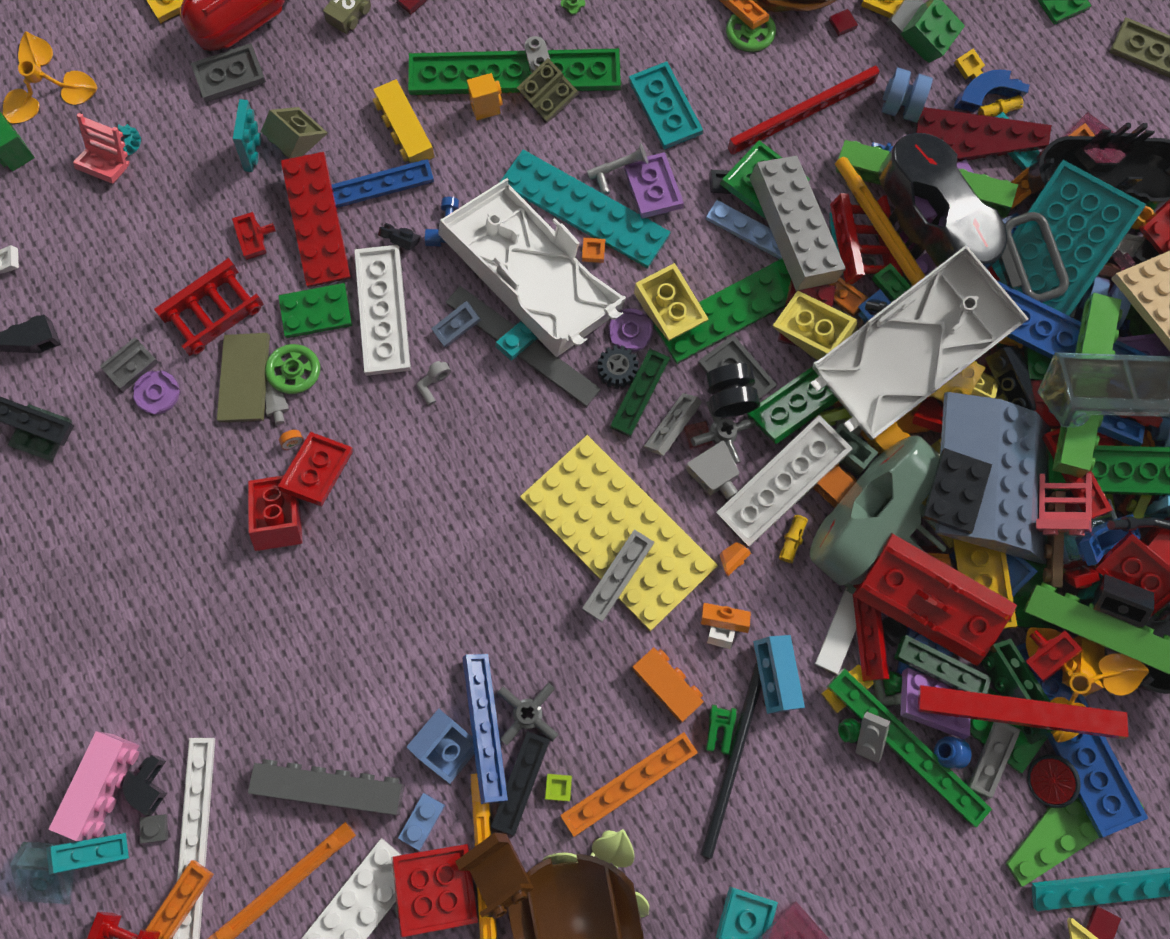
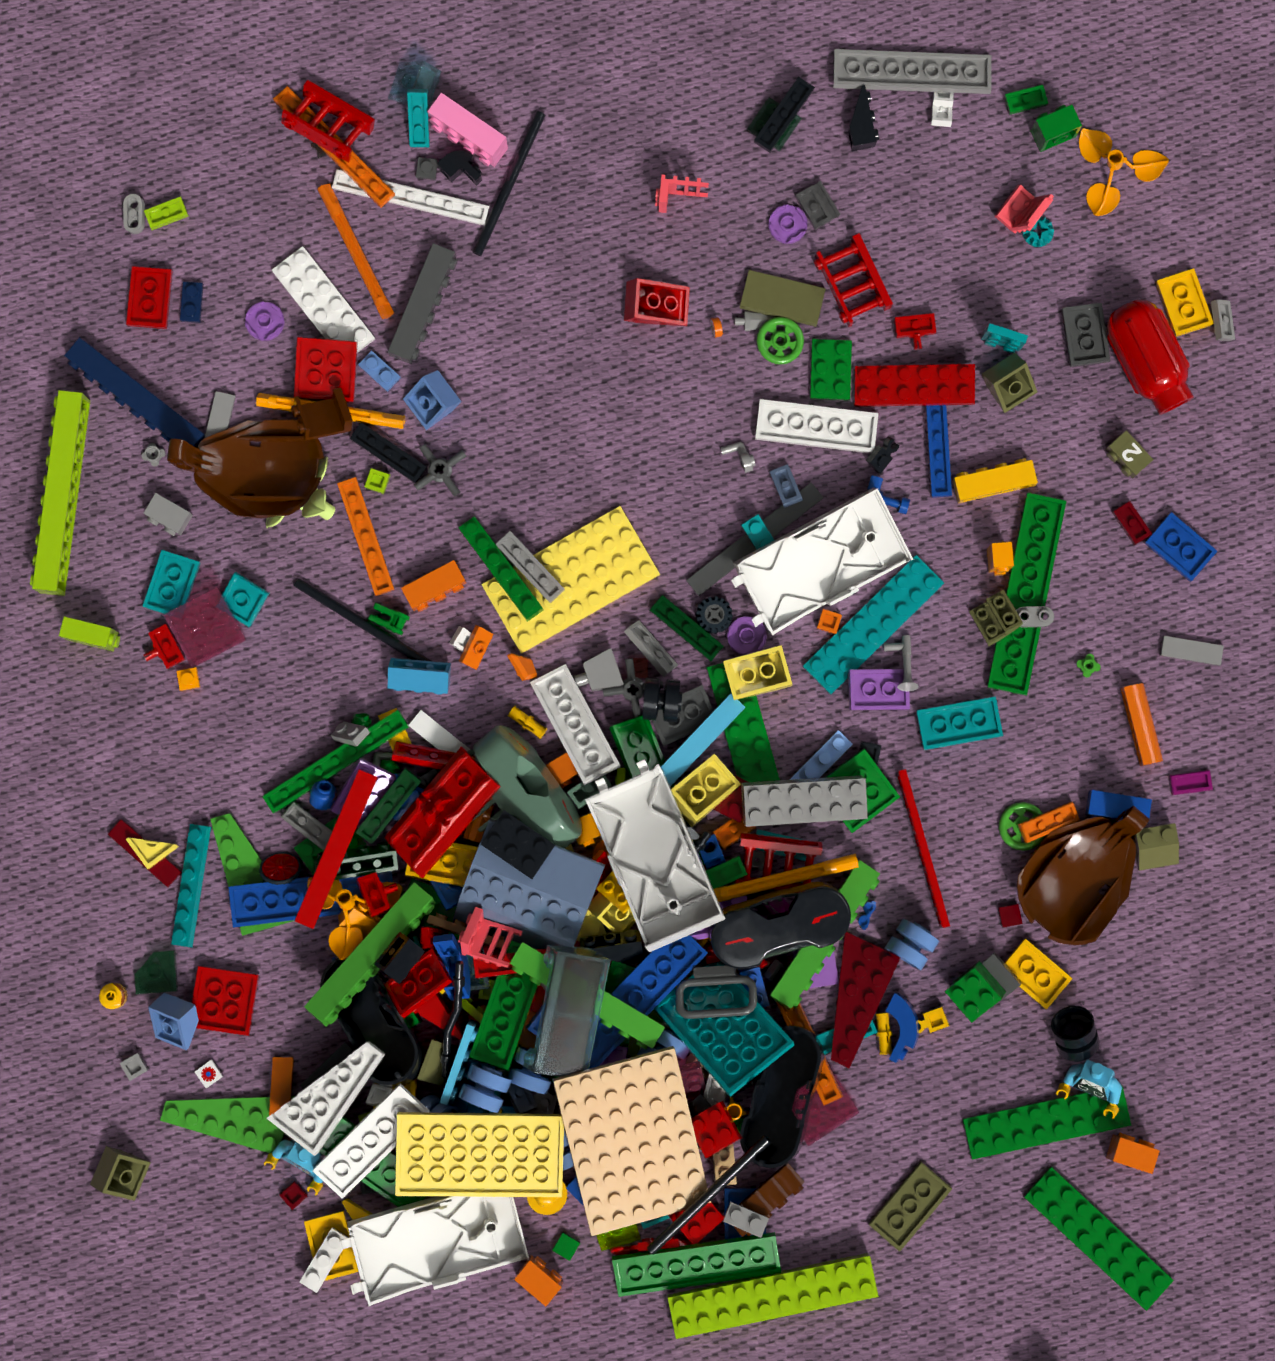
camera: 105 degrees right, 10 degrees up
(135, 529) = (669, 186): none -> coral plate
(157, 721) = (509, 183): none -> black piece
(315, 469) = (683, 342): red plate -> none
(484, 729) = (437, 433): plate -> none
(627, 610) = (501, 569): none -> green plate
(760, 345) = (701, 738): none -> medium azure tile

